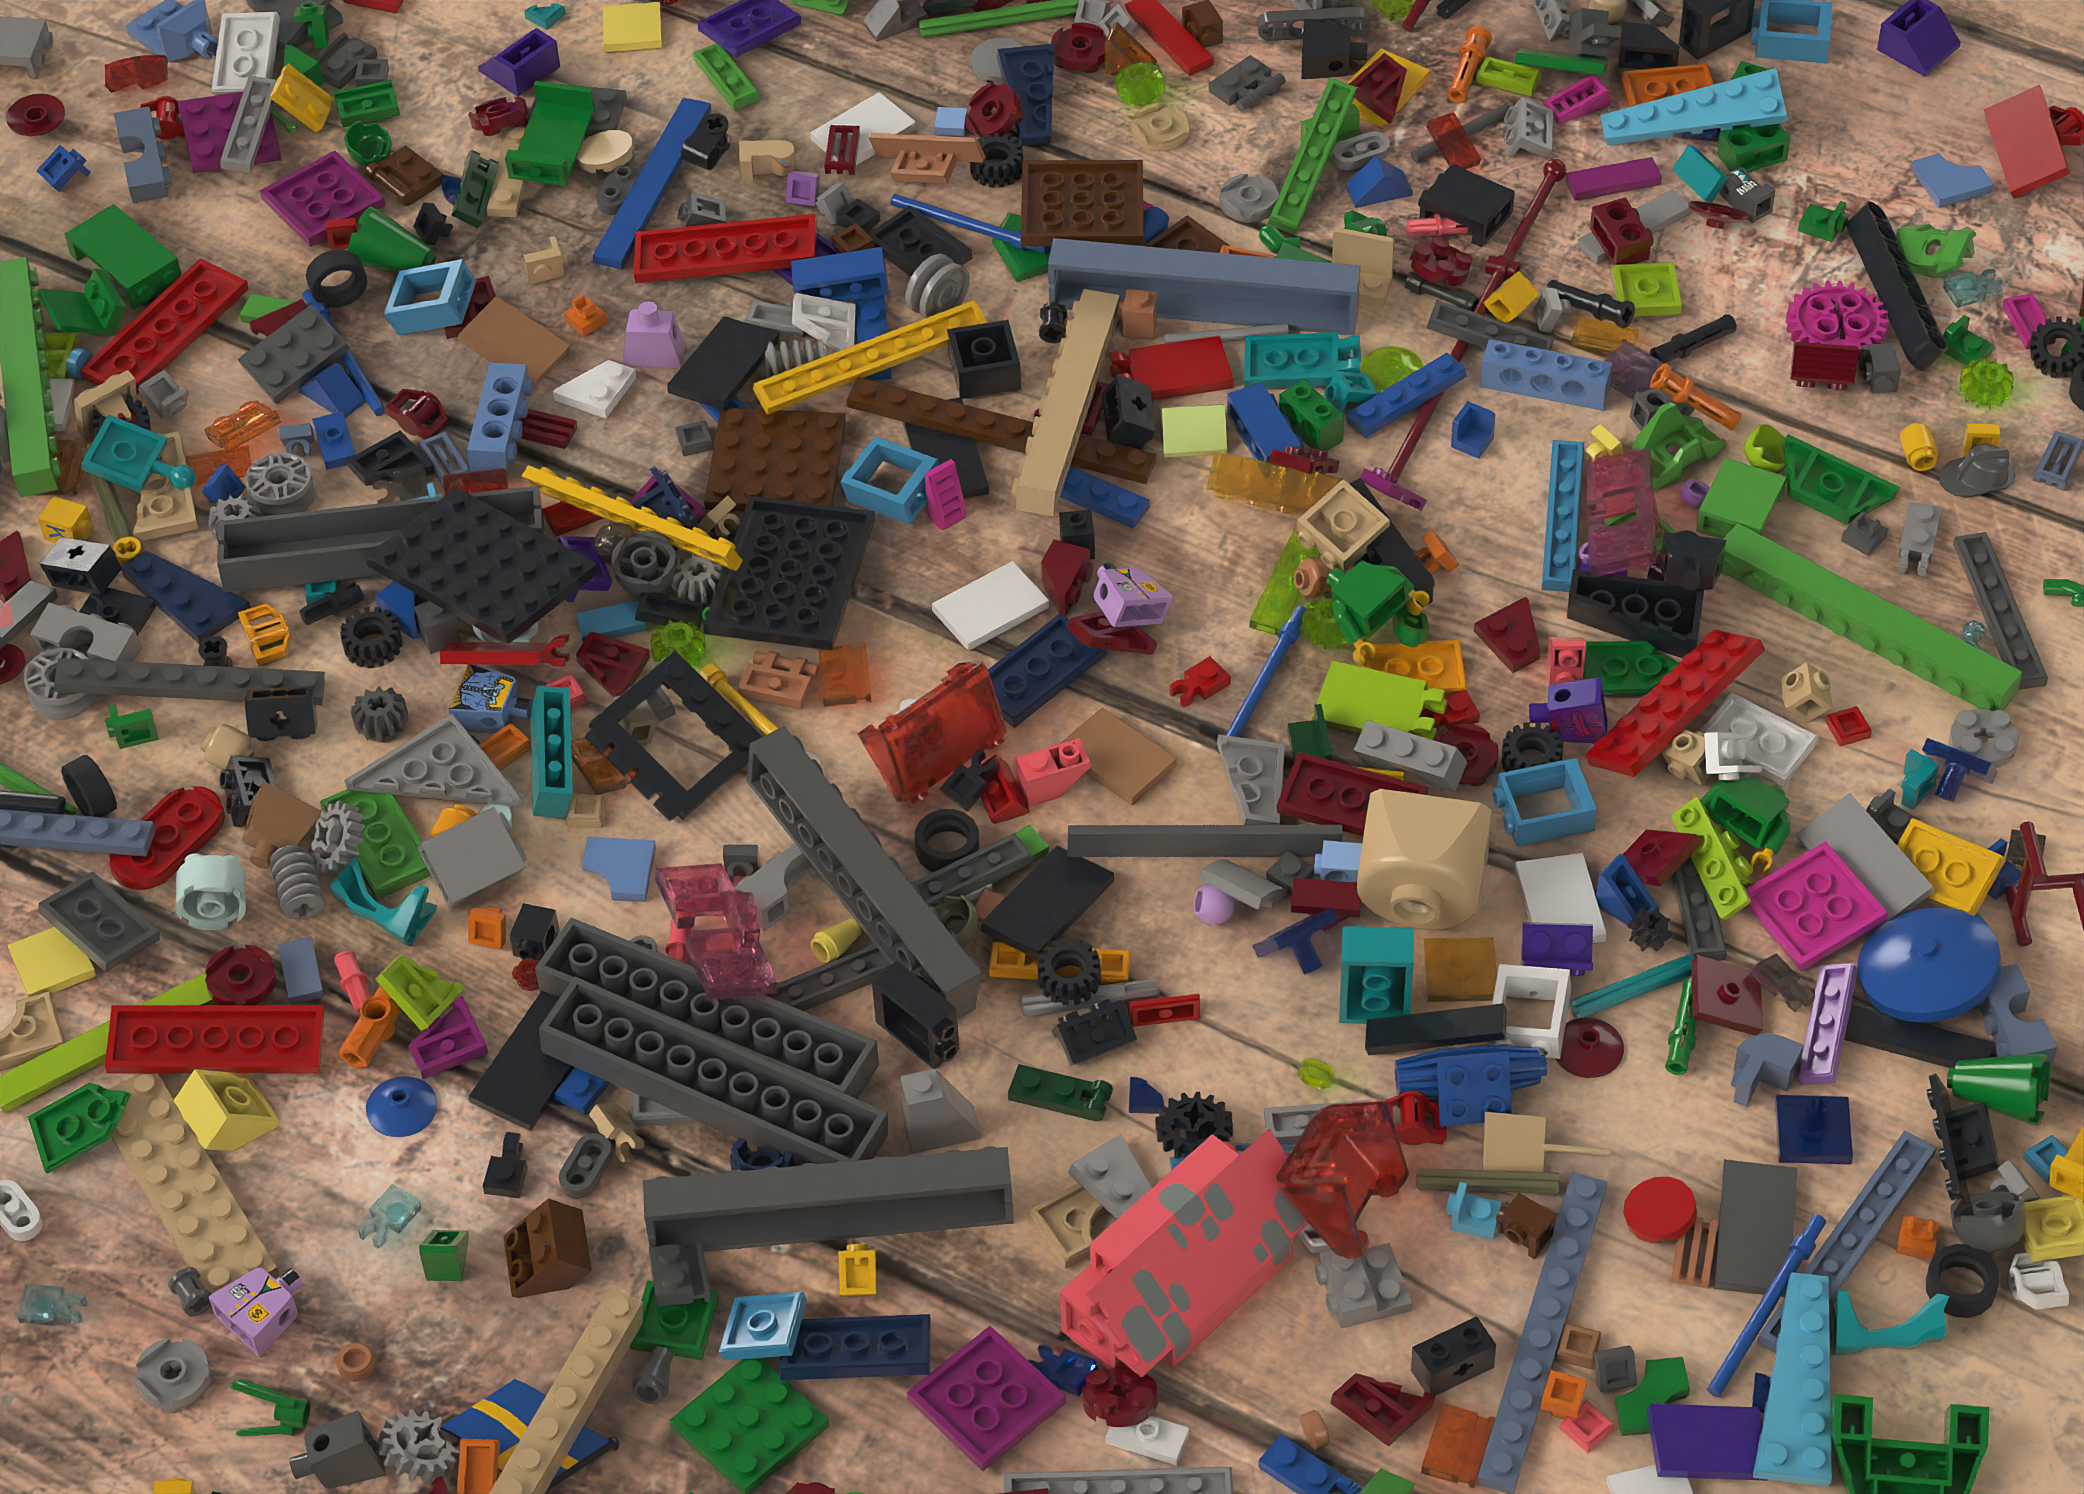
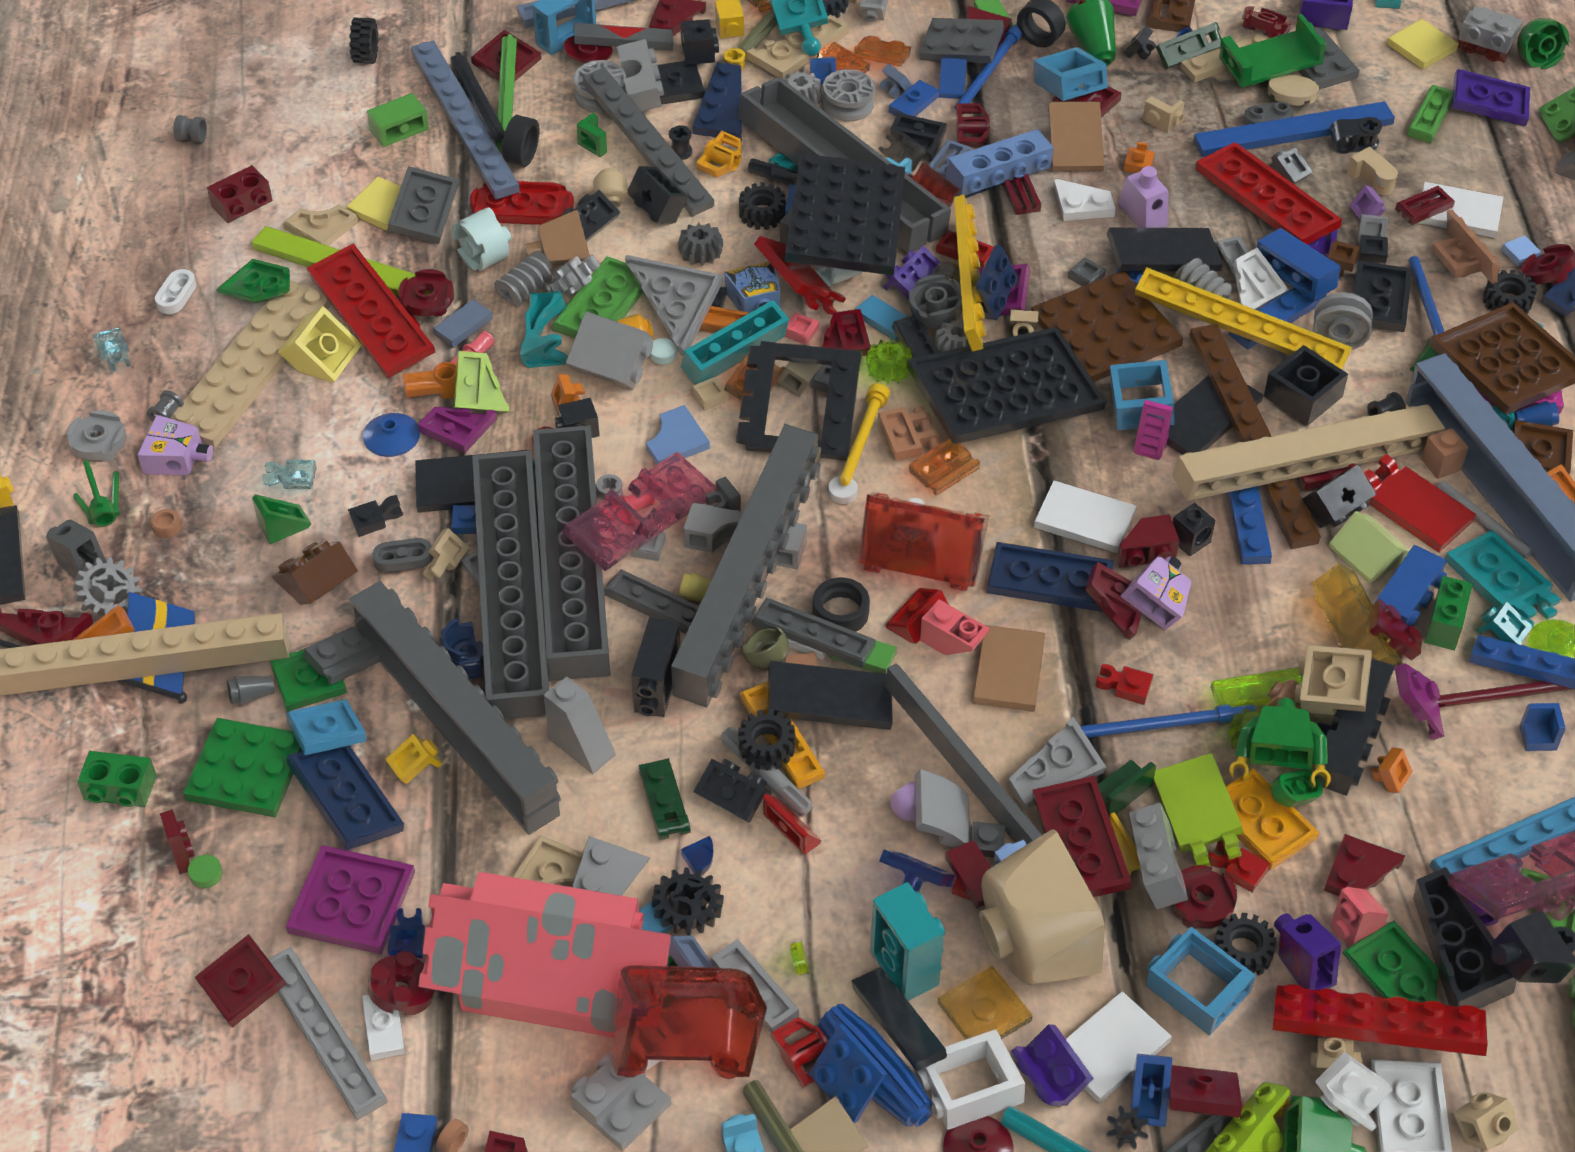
camera: 55 degrees right, 0 degrees up
(966, 783) = (902, 587): black plate -> none

